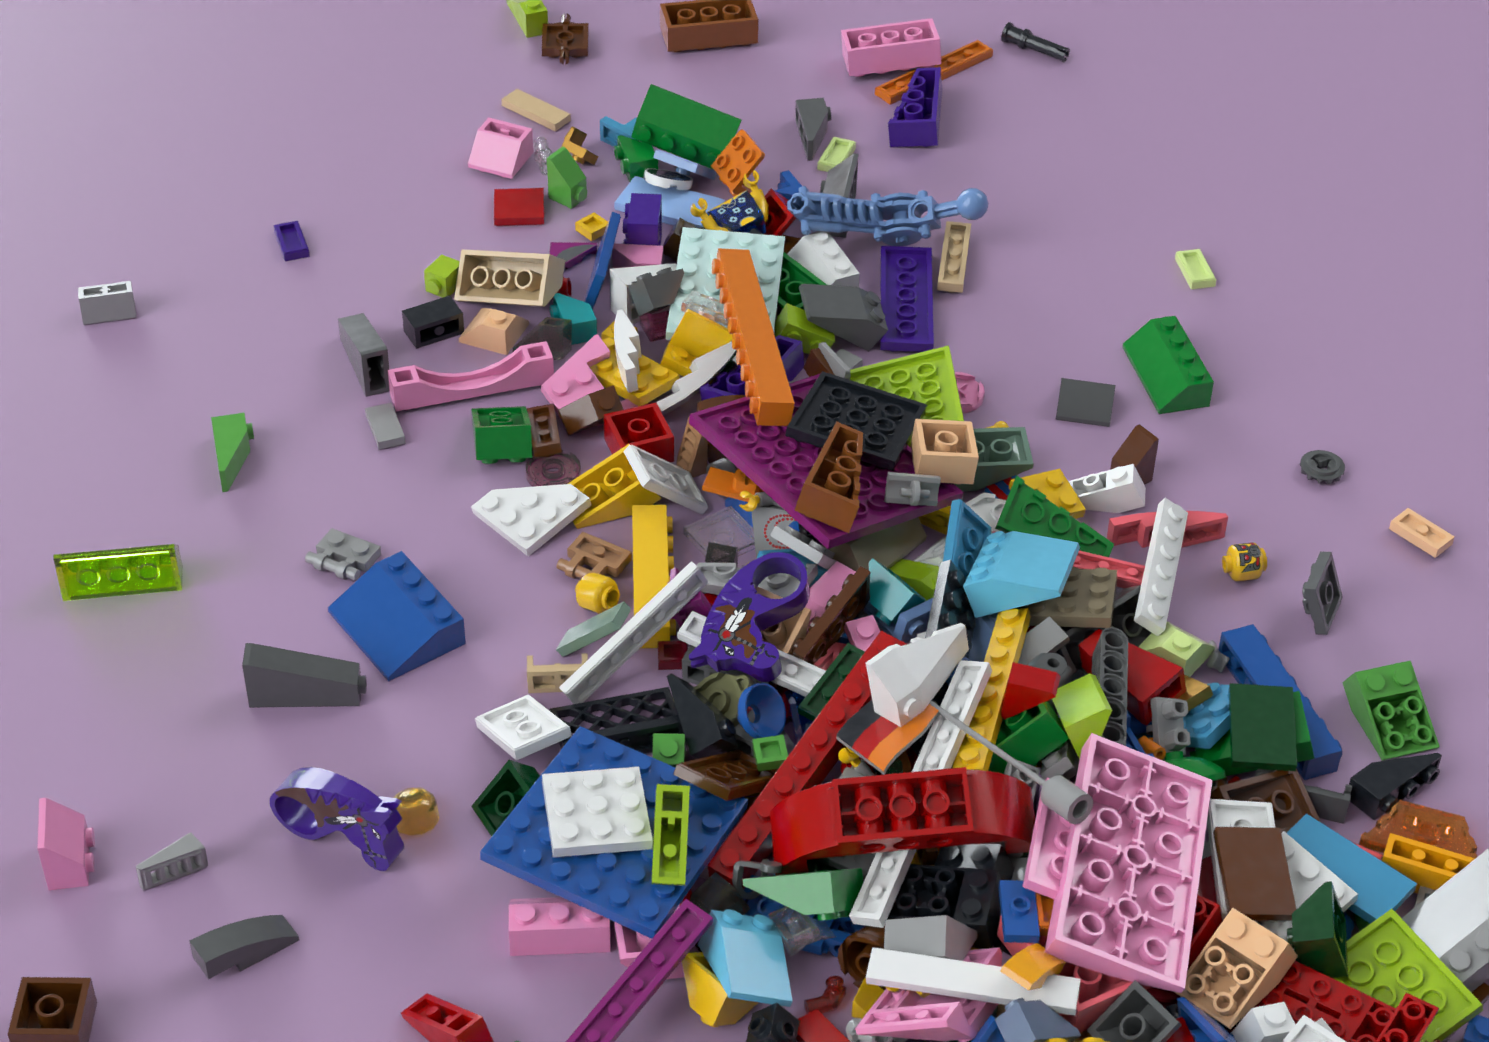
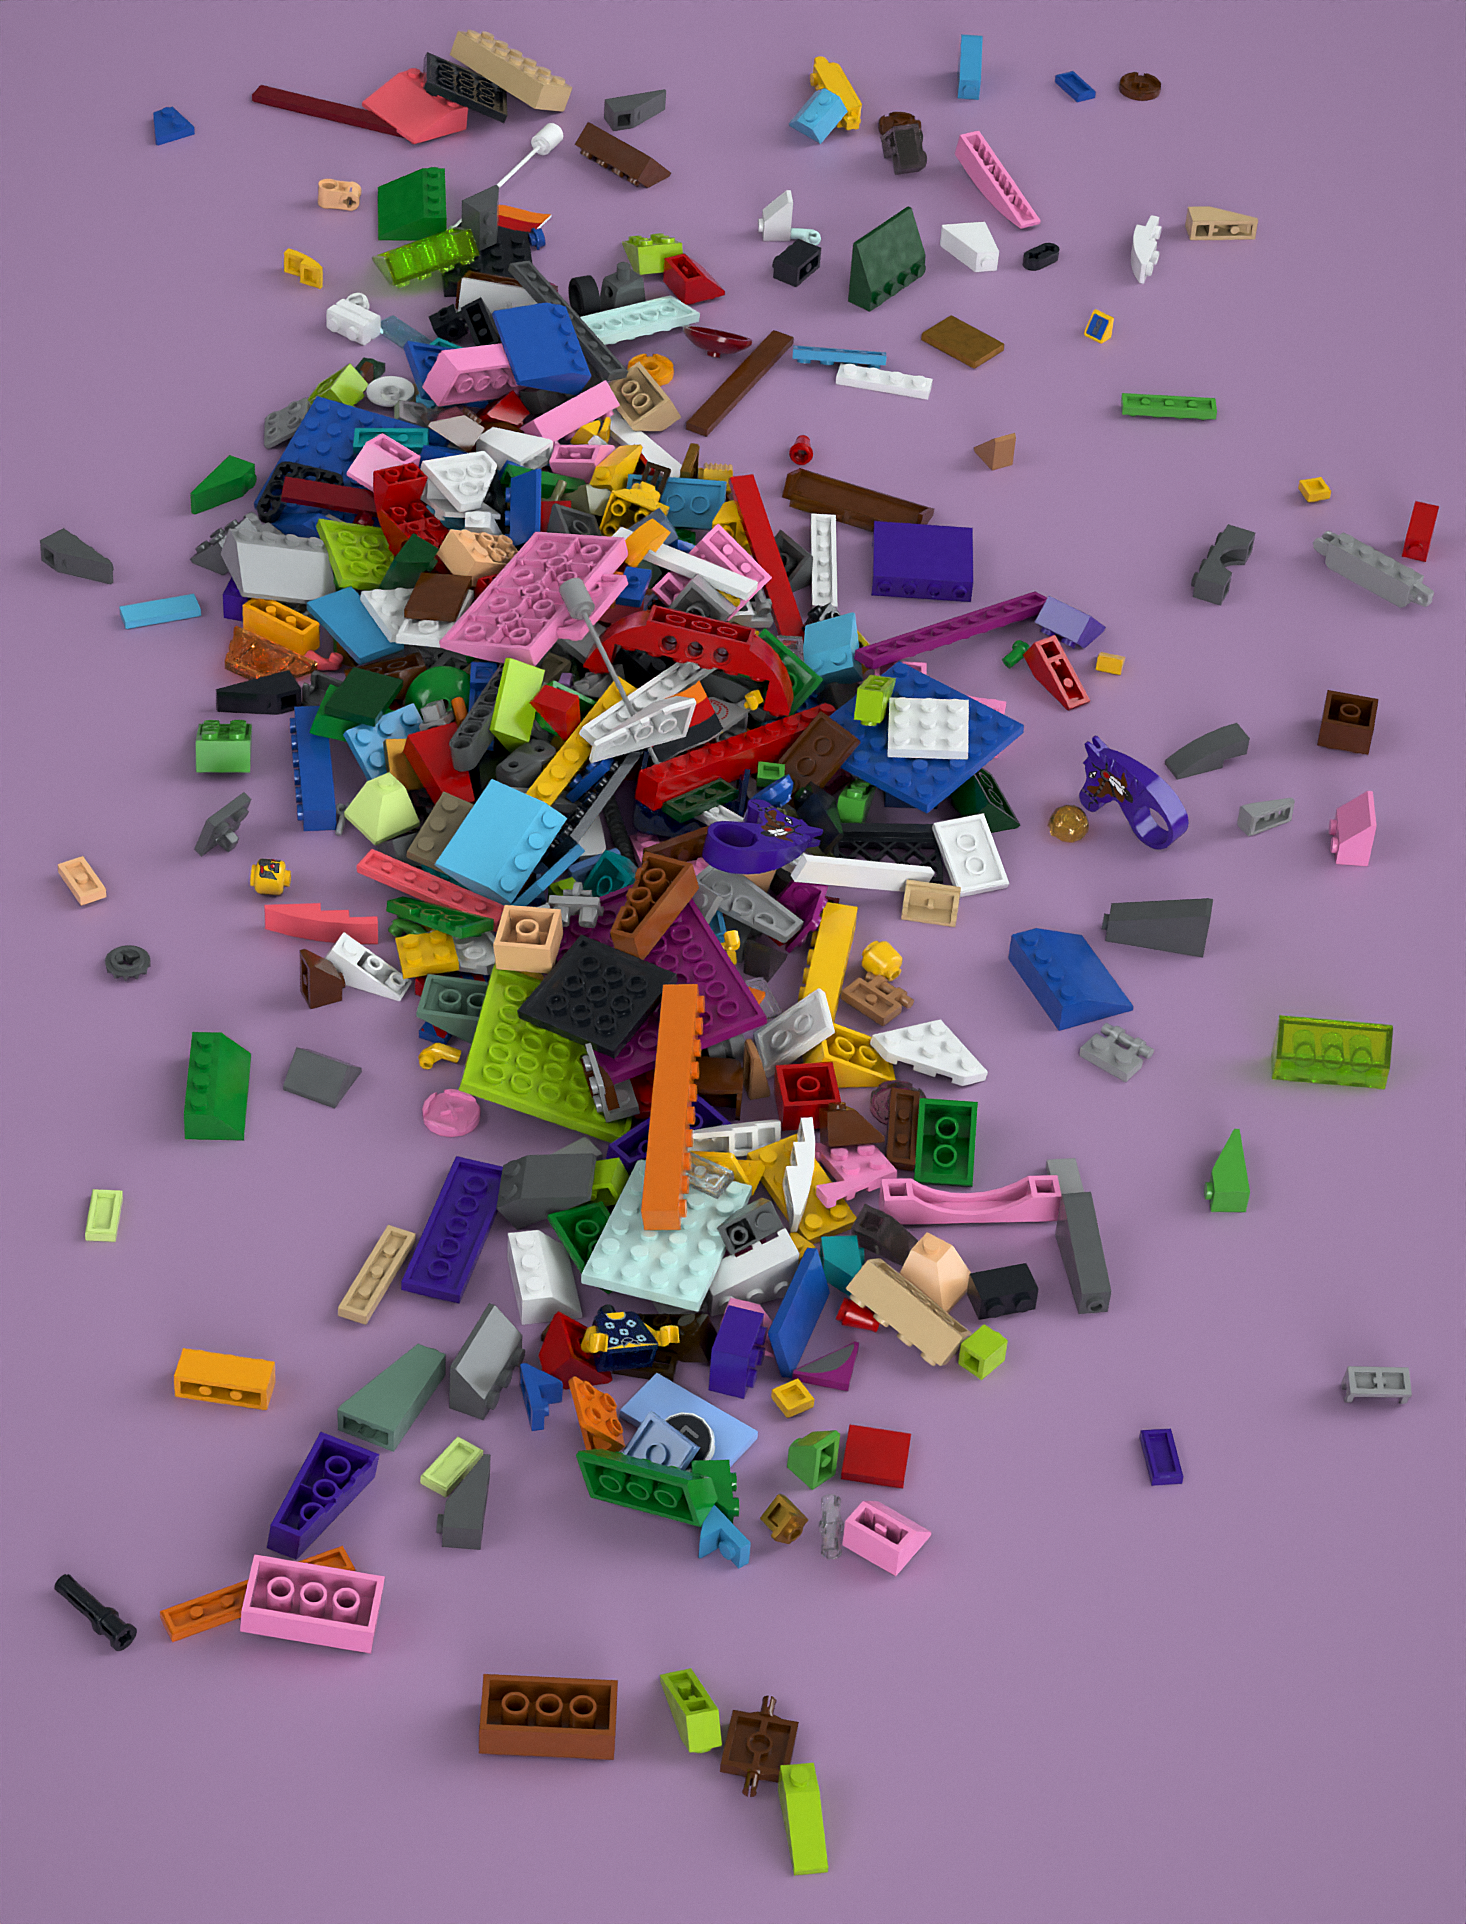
camera: 170 degrees left, 0 degrees up
(536, 110) = (825, 1622): tan tile -> none
(593, 629) = (896, 904): sand green tile -> none
(615, 45) = (692, 1711): none -> lime slope
(765, 867) = (800, 681): dark grey piece -> none
(901, 210) = (432, 1302): medium blue piece -> none
(902, 169) = (393, 1399): none -> sand green slope
(1029, 170) = (224, 1379): none -> light orange brick
(1161, 567) = (360, 856): white plate -> none

